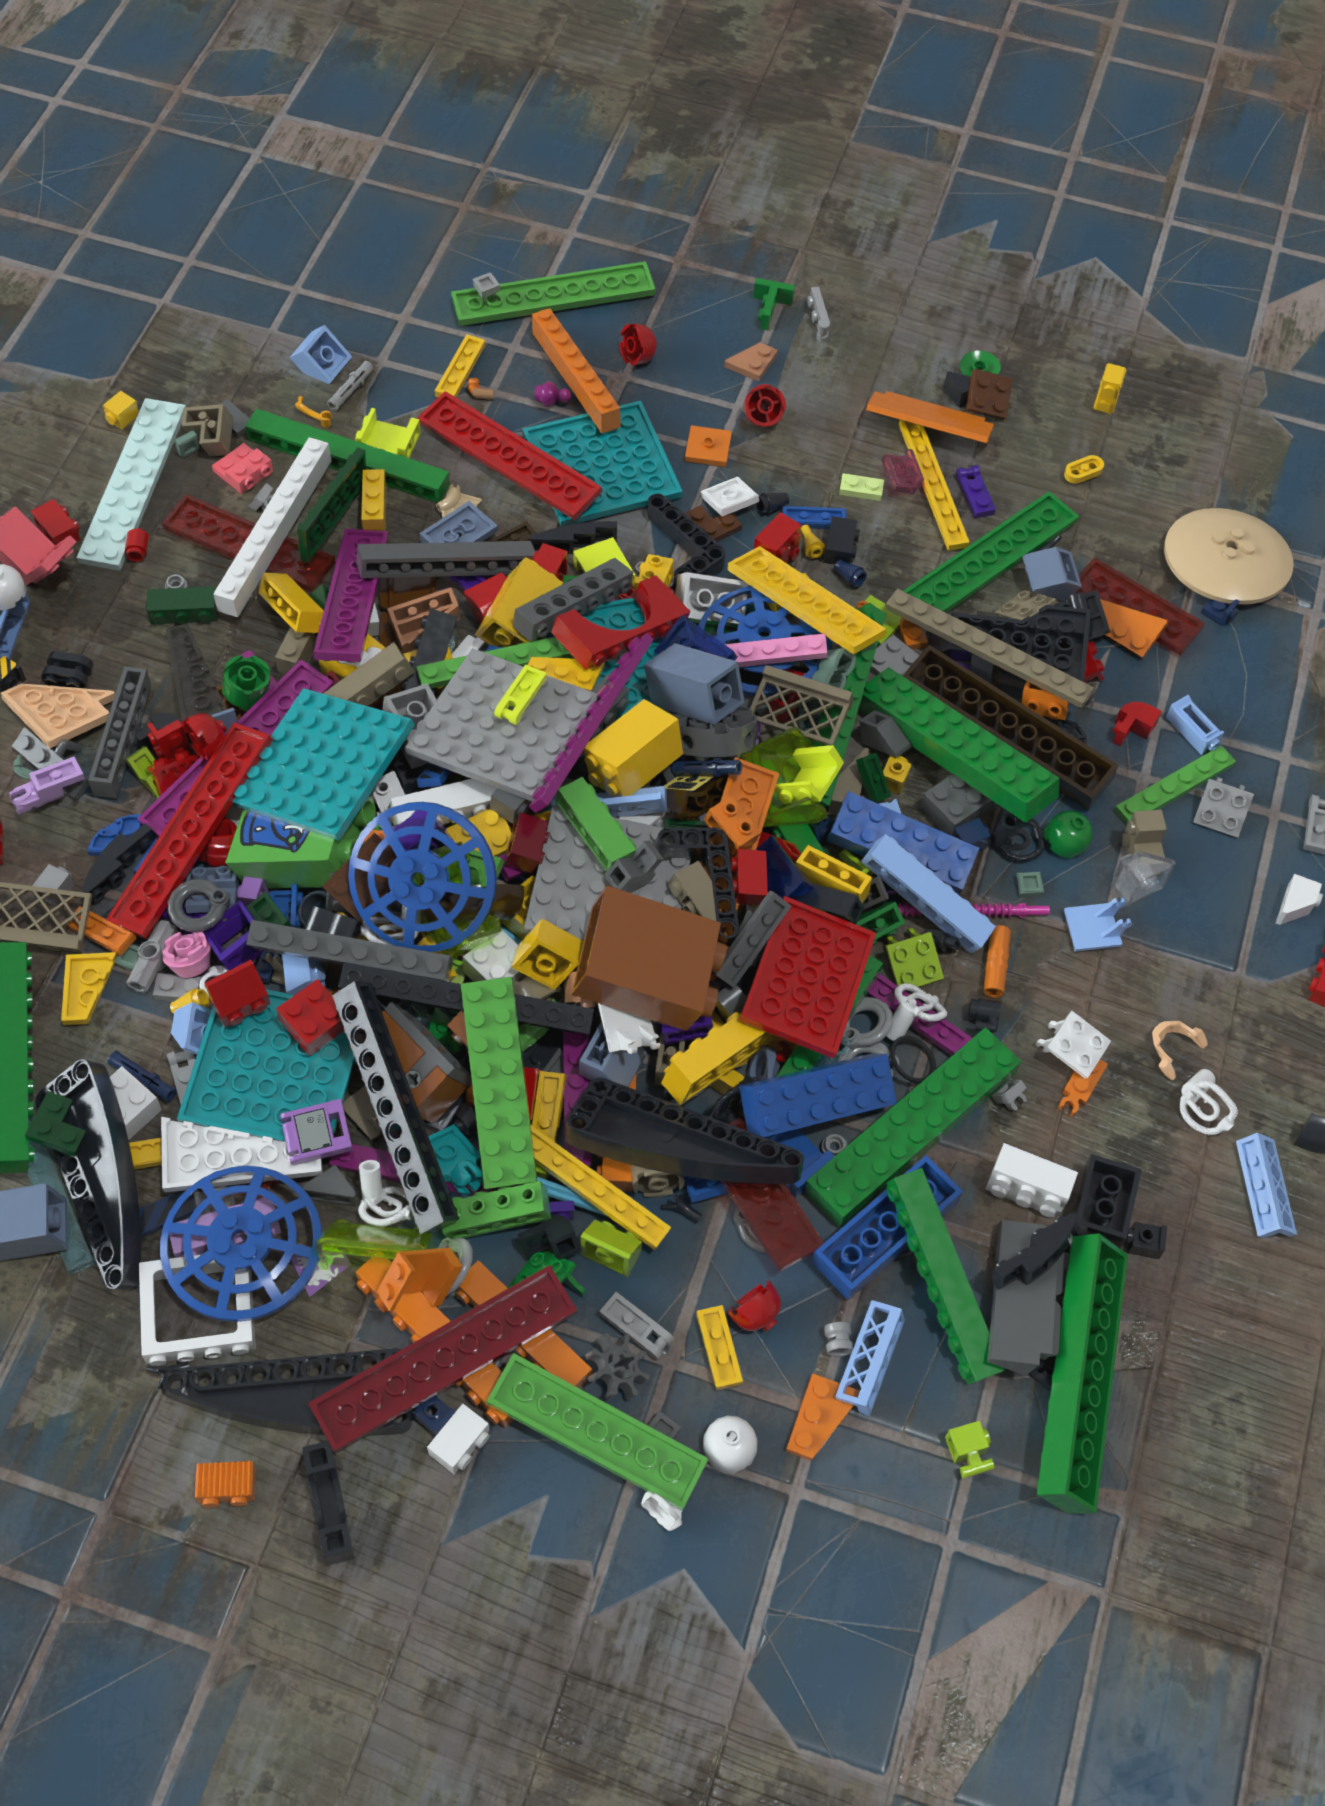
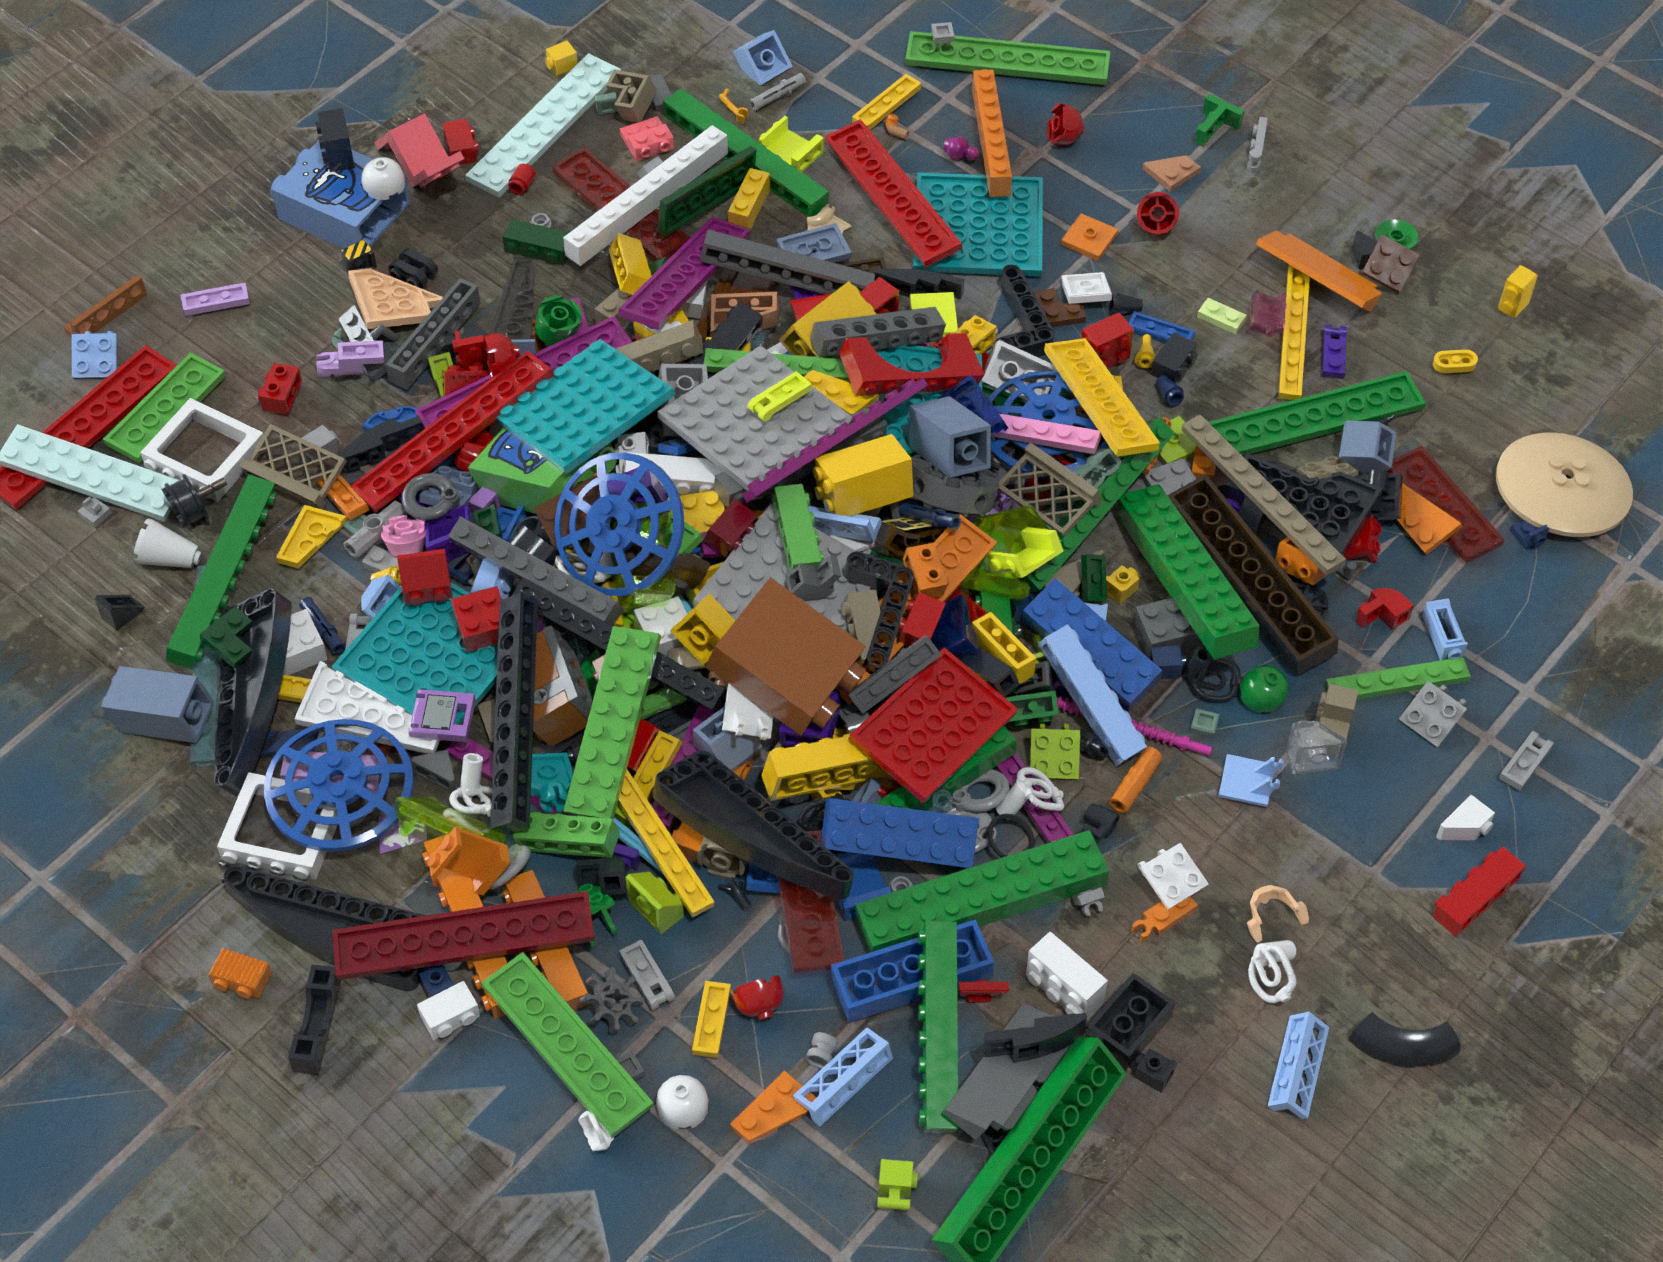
camera: 25 degrees right, 5 degrees down
(883, 734) = (1124, 543): dark grey slope -> none
(956, 1221) = (981, 990): none -> red plate

